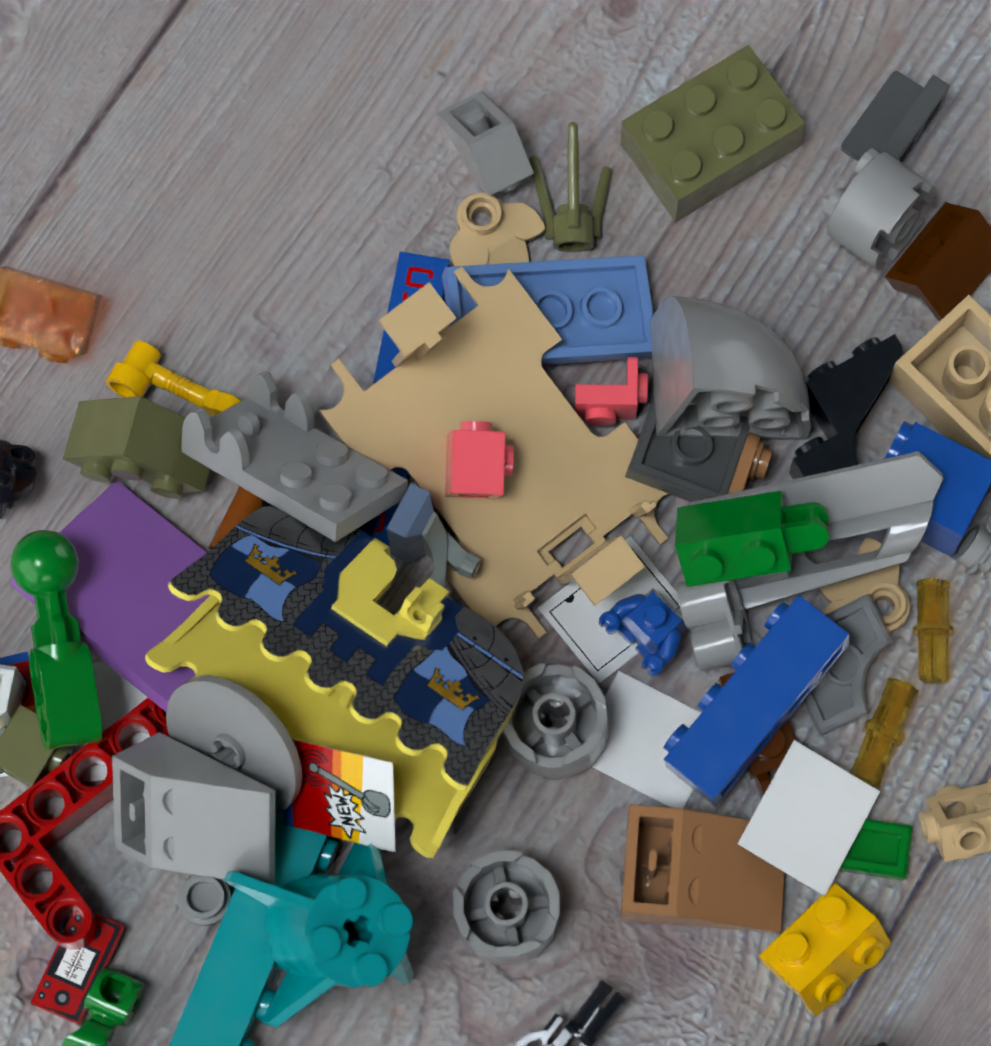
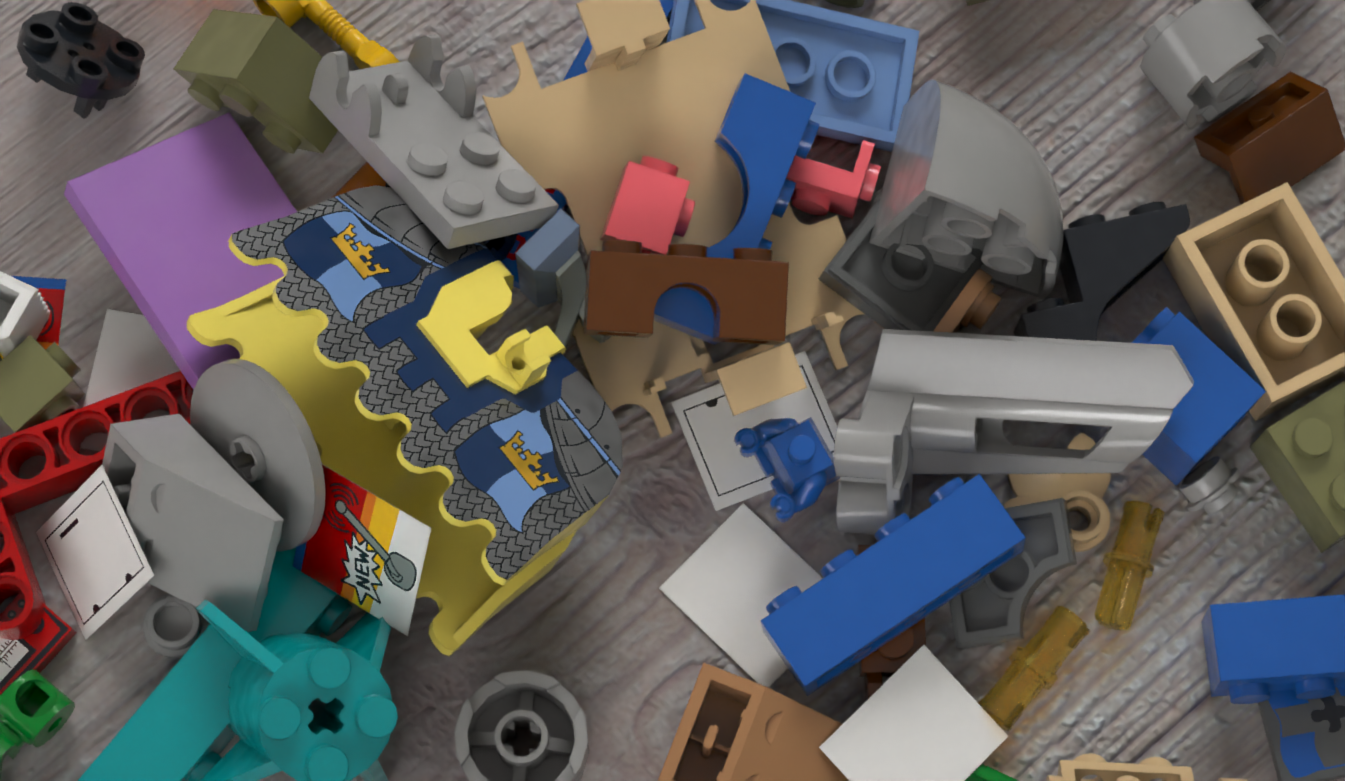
camera: 10 degrees right, 0 degrees up
(60, 663) = (86, 313): green beam -> none
(125, 861) = (94, 553): none -> white sticker
(550, 379) = (761, 137): none -> blue arch
(564, 750) = (659, 574): light grey brick -> none
(574, 508) = (743, 291): none -> reddish brown arch
(746, 536) = (937, 387): green brick -> none

